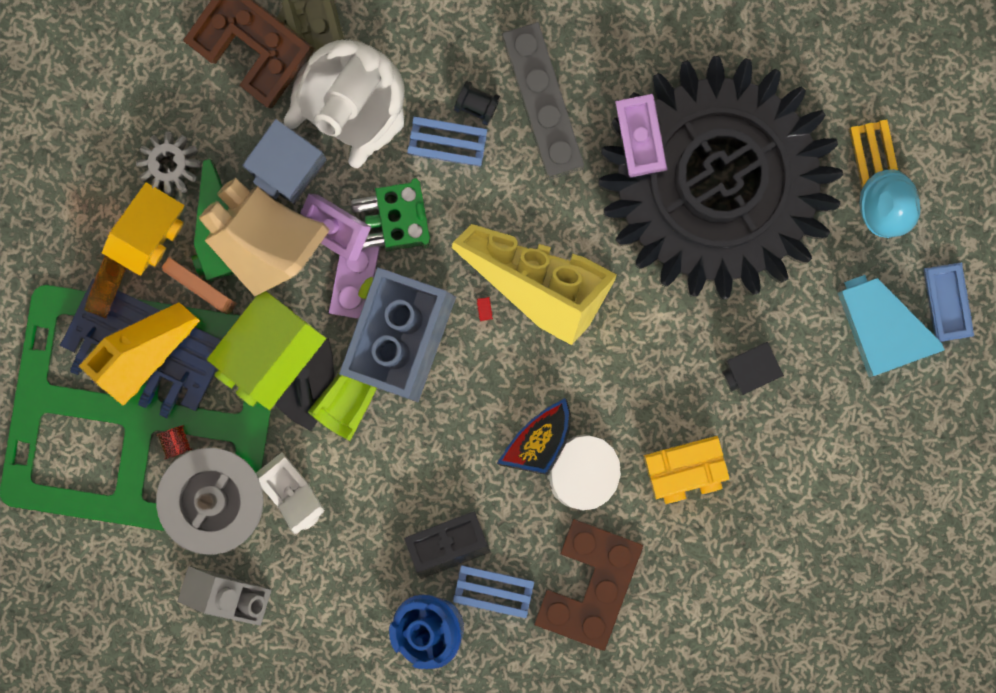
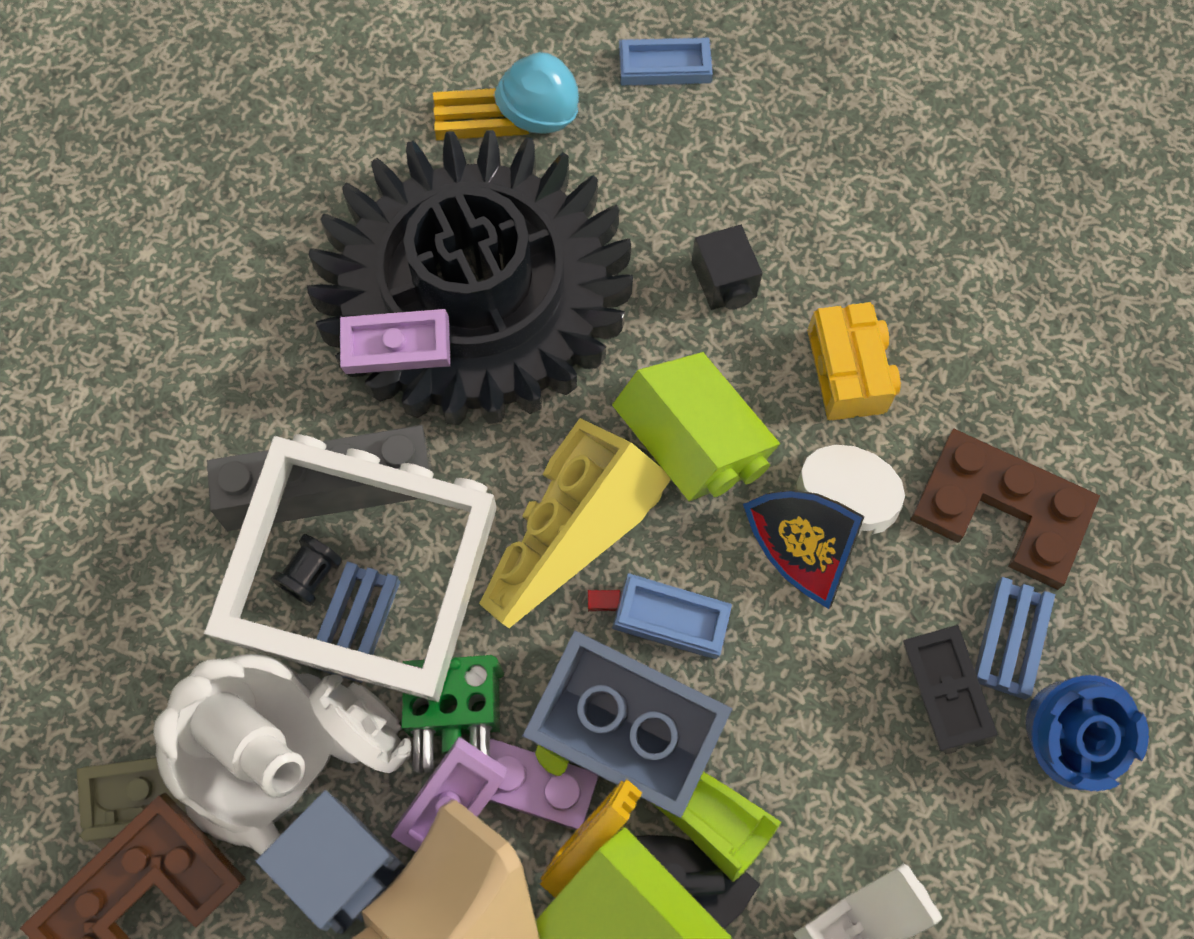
camera: 85 degrees left, 20 degrees down
(320, 318) = (590, 836): none -> yellow tile
(373, 162) = (360, 723): none -> white tile
(409, 131) = (363, 468): none -> white window
(477, 356) = (672, 616): none -> medium blue tile
(611, 358) = (696, 426): none -> lime brick
(884, 327) = (689, 121): medium azure slope -> none

